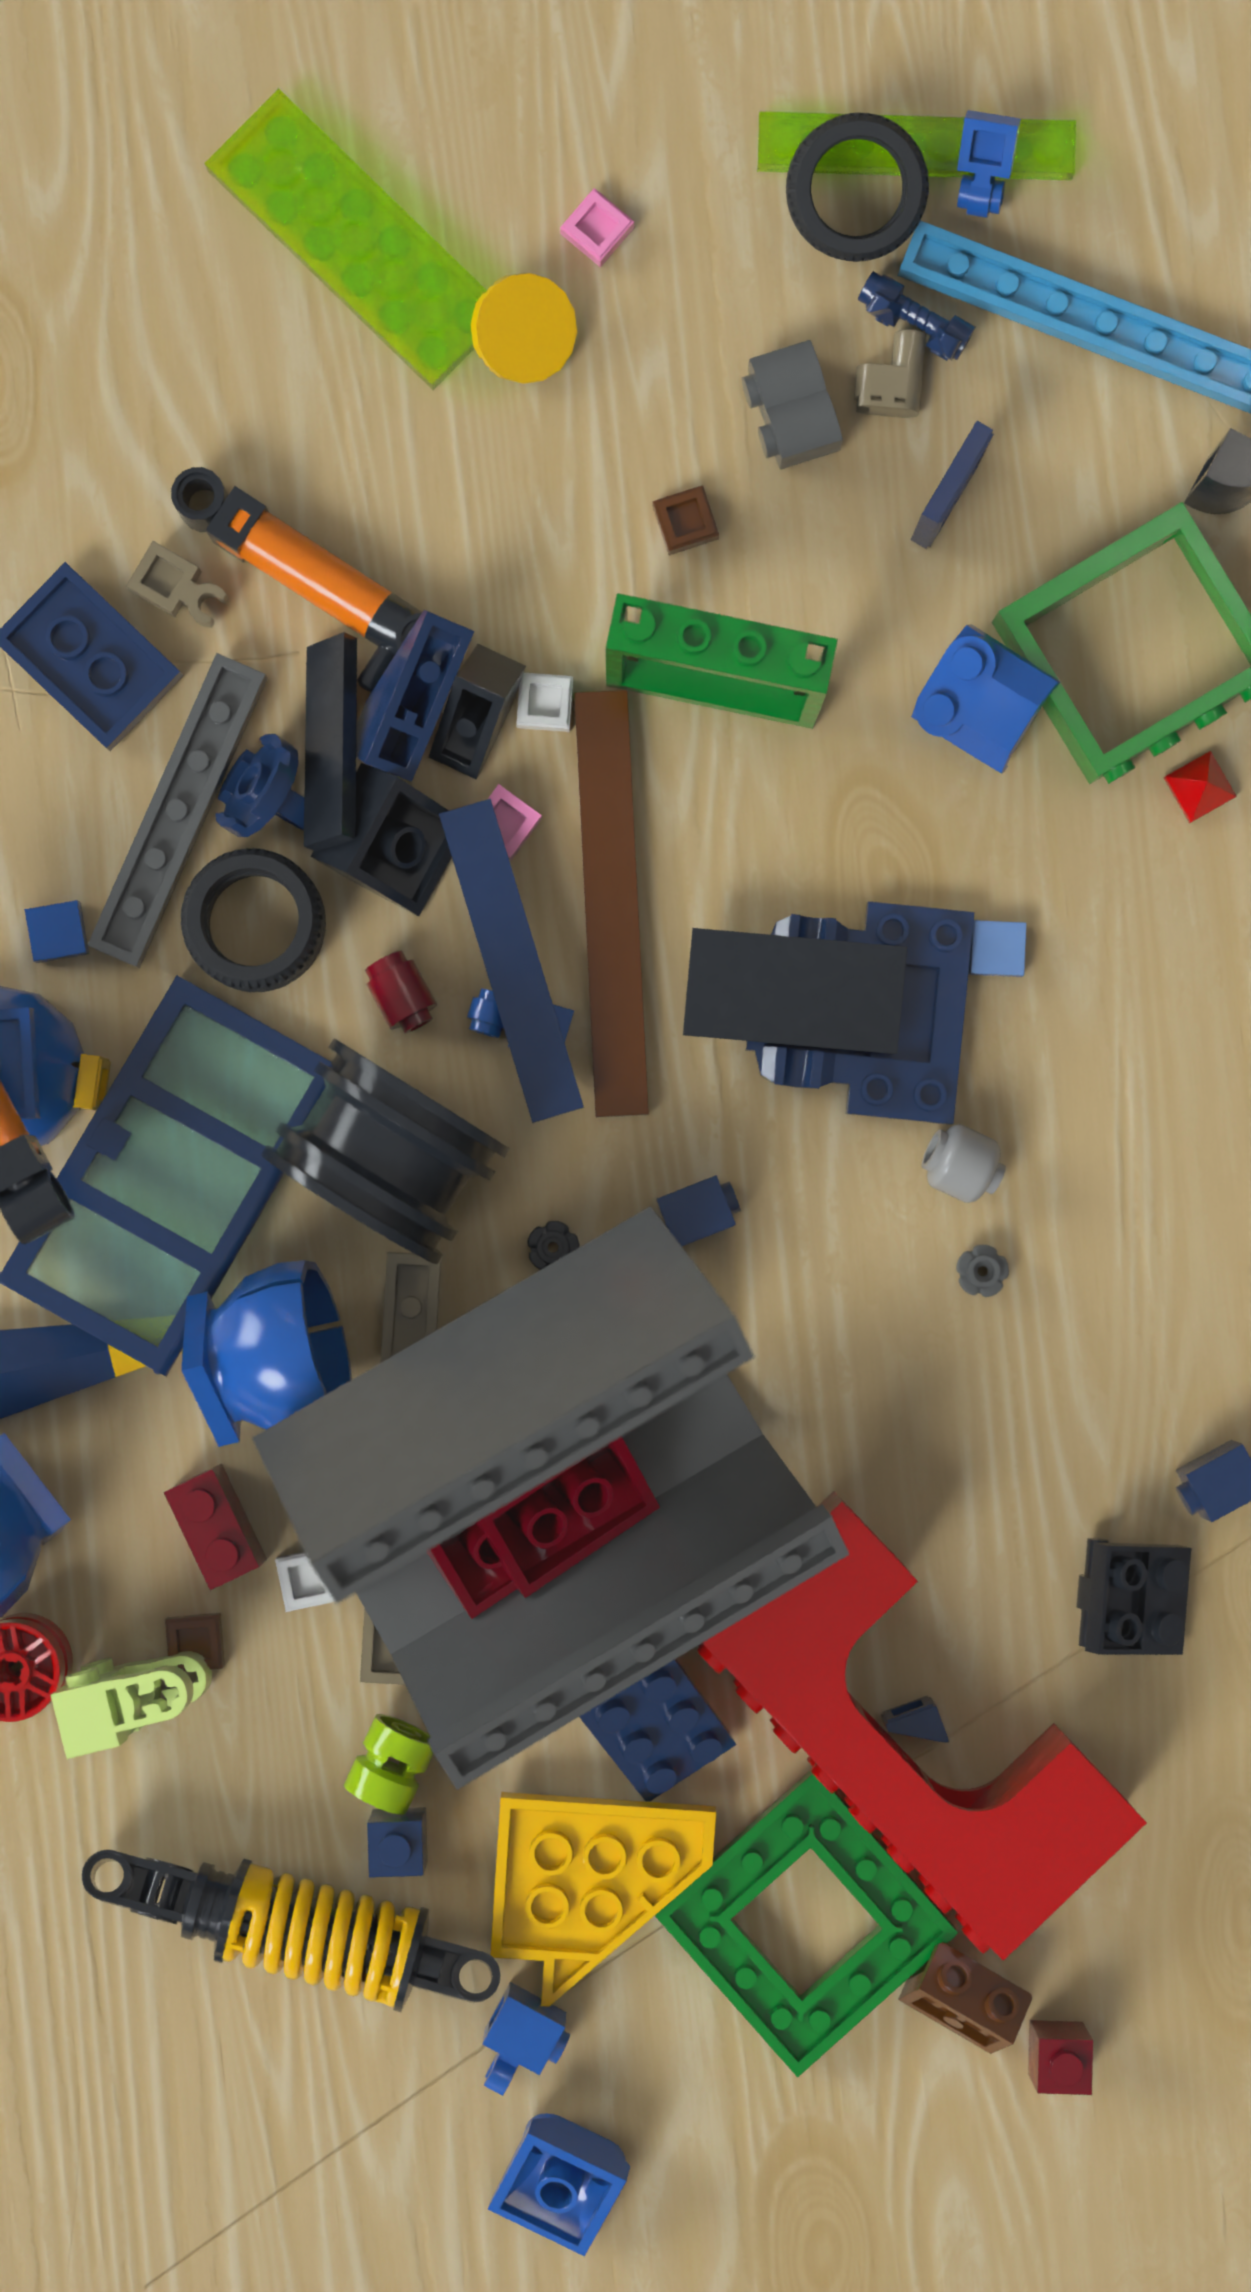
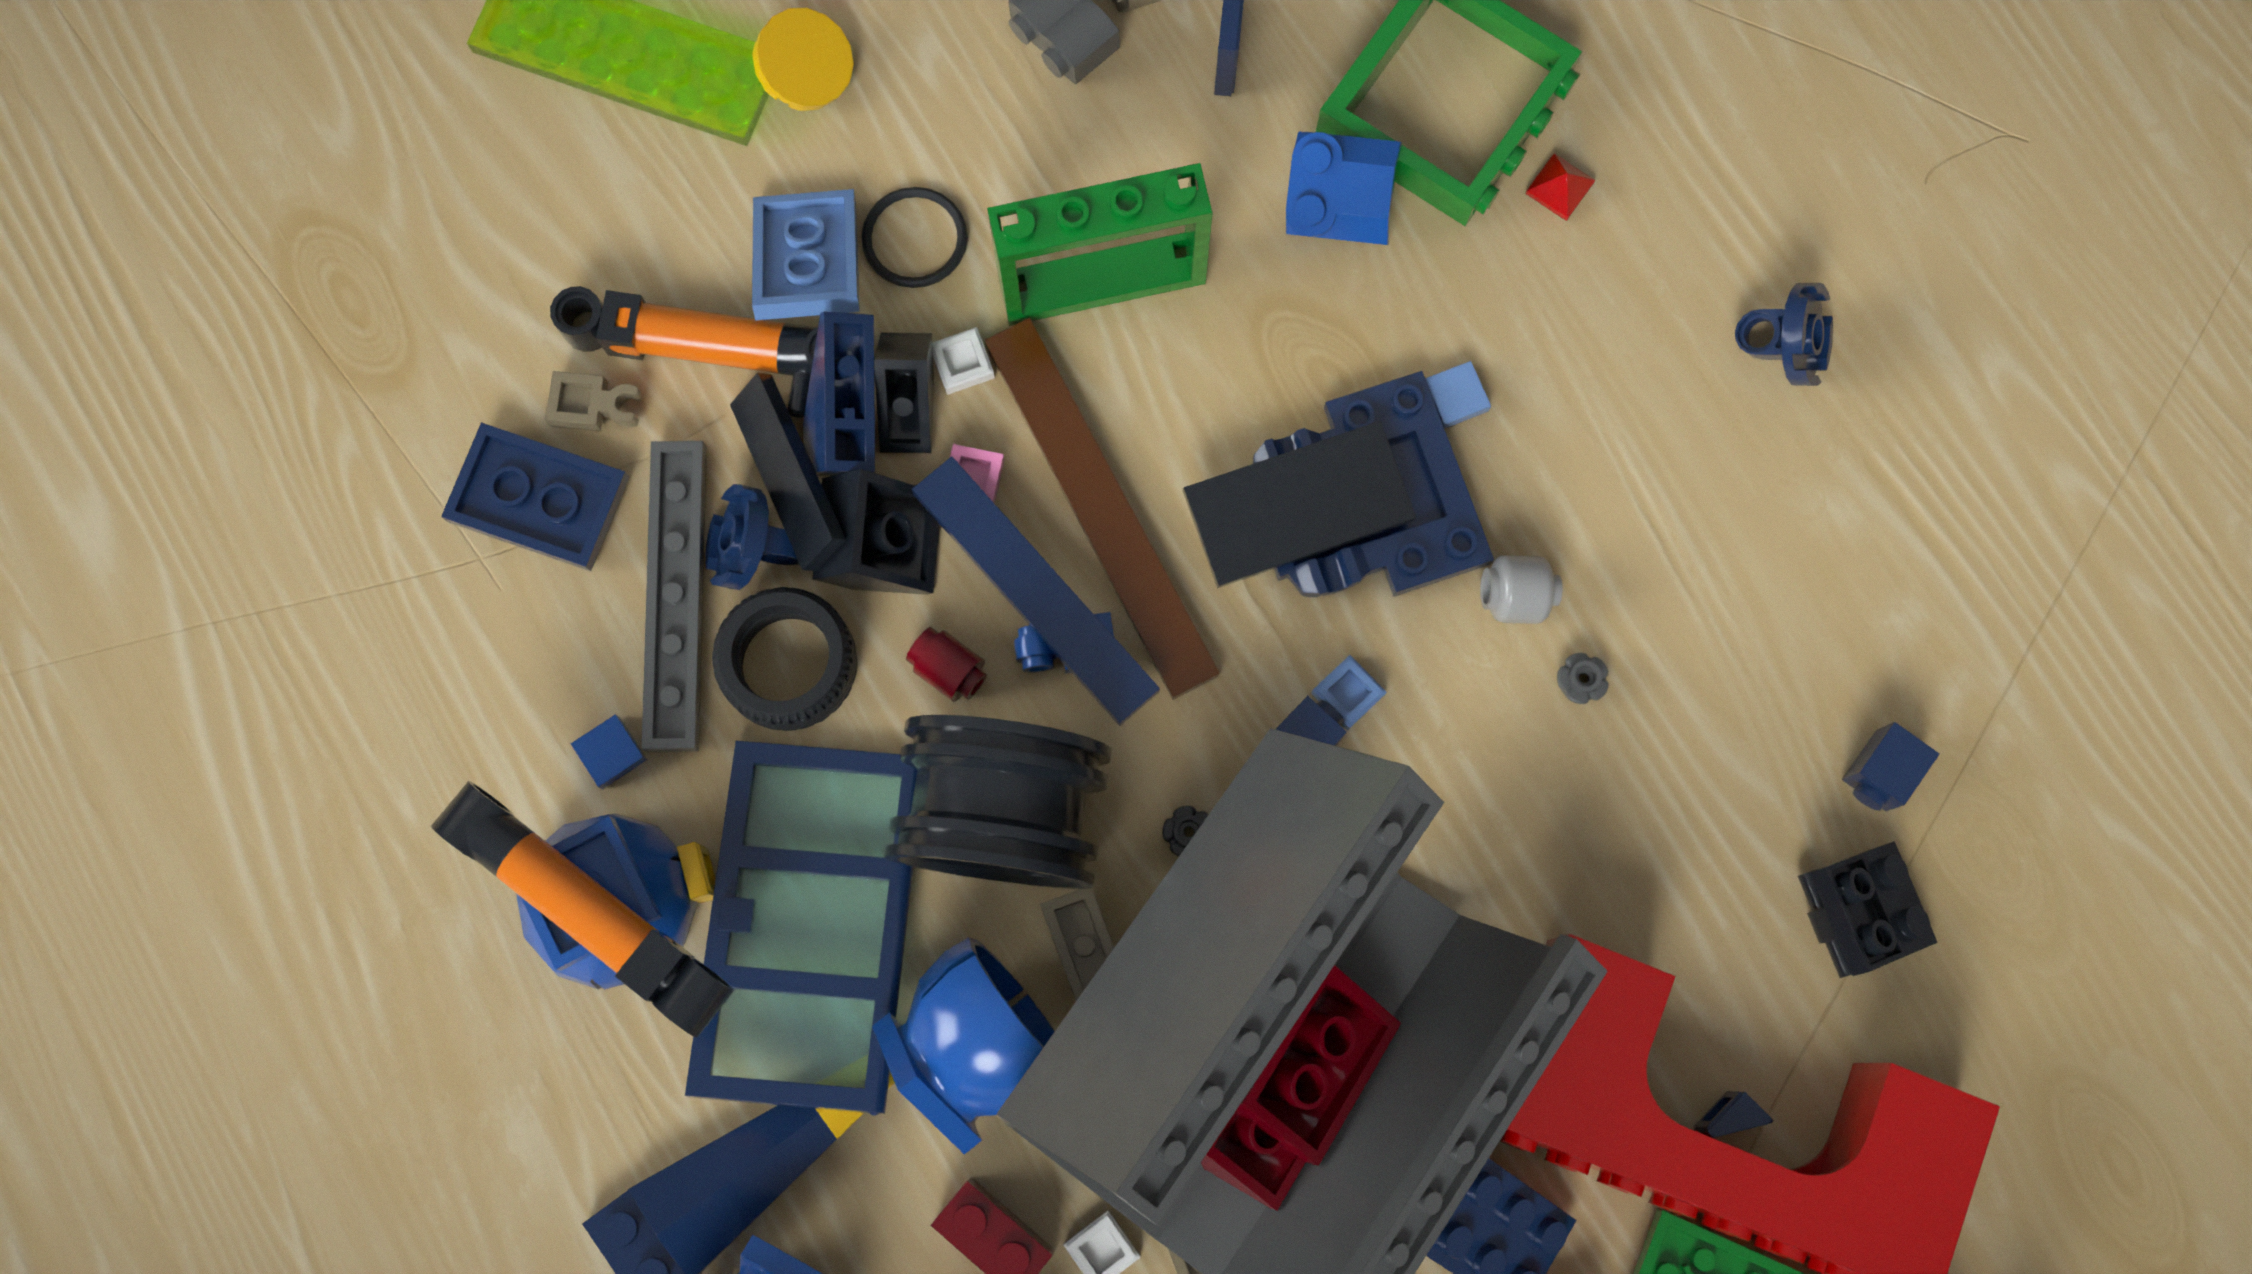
camera: 20 degrees left, 10 degrees down
(439, 534) = (805, 254): none -> medium blue plate
(521, 519) = (914, 282): none -> black tyre
(685, 520) = (1014, 159): reddish brown tile -> none
(760, 1185) = (1349, 691): none -> medium blue tile

